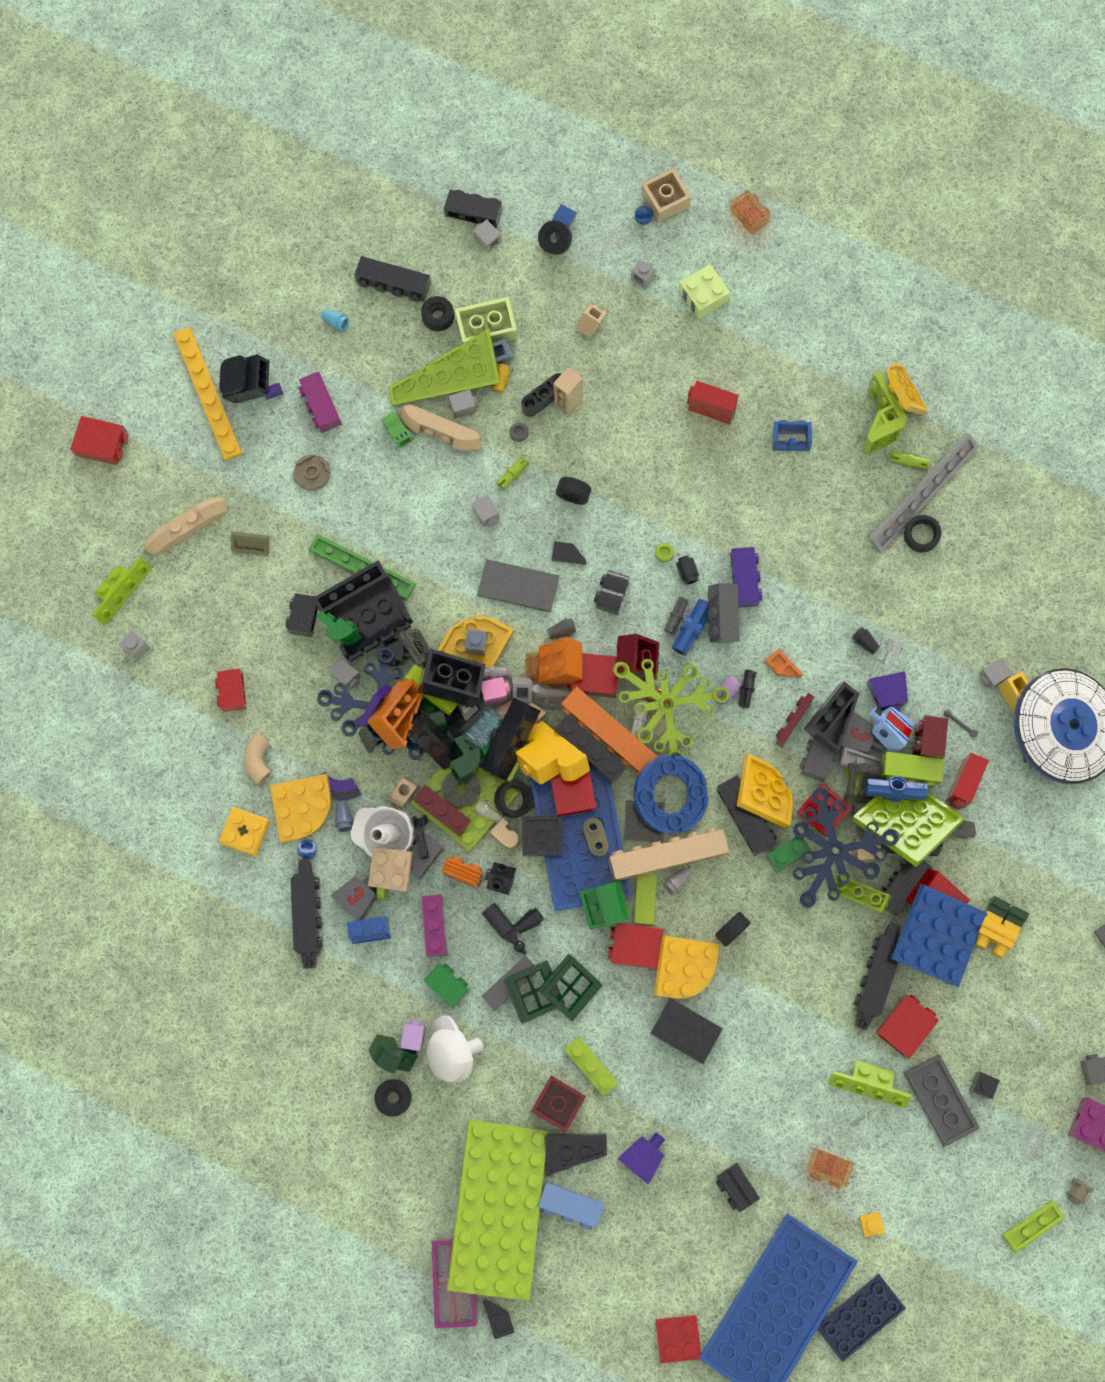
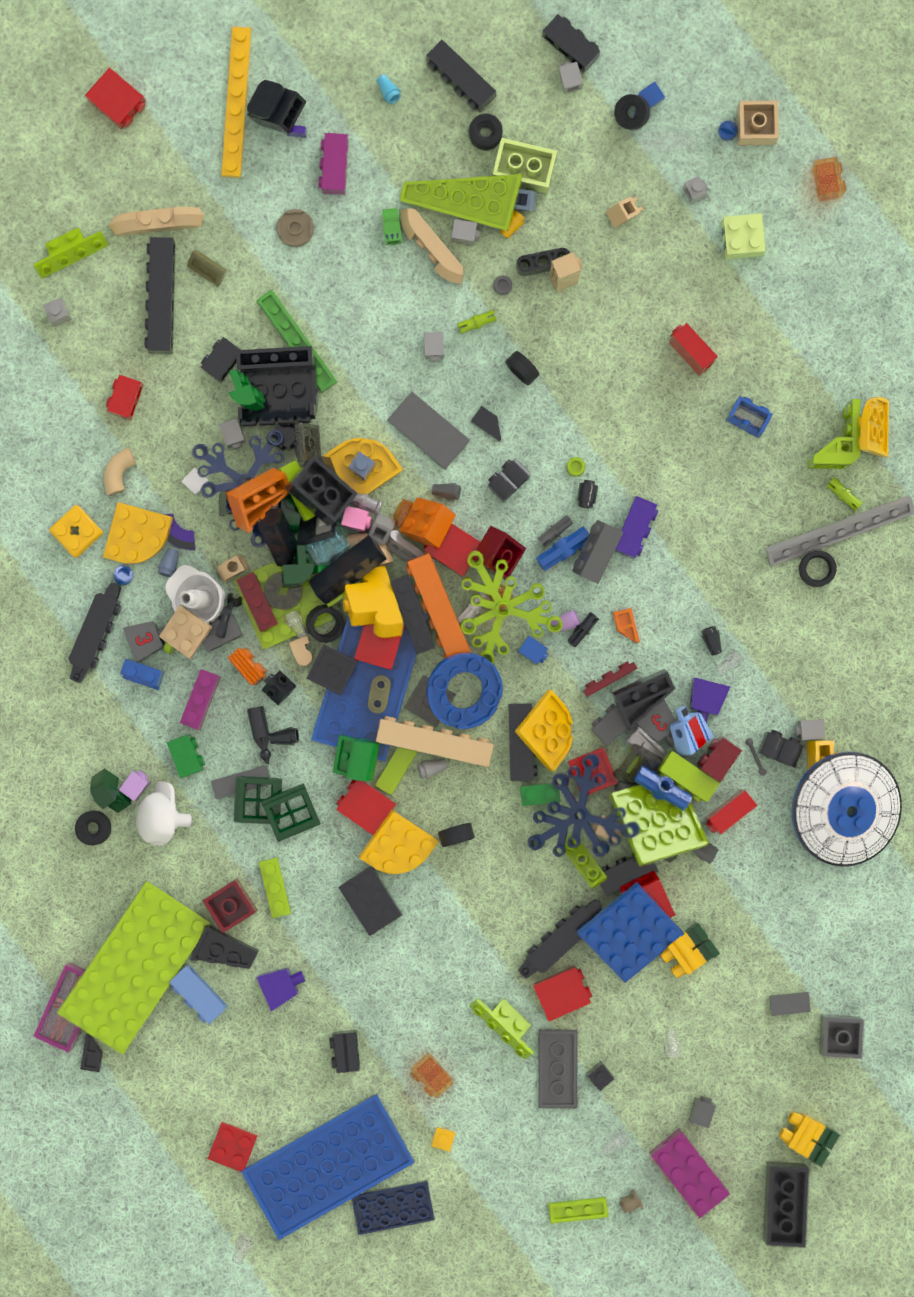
camera: 30 degrees right, 10 degrees up
(221, 587) = (161, 295): none -> black brick
(331, 733) = (194, 482): none -> white piece
(374, 704) = (241, 479): dark purple tile -> none
(713, 729) = (533, 650): none -> blue brick
(978, 704) = (781, 749): none -> black brick

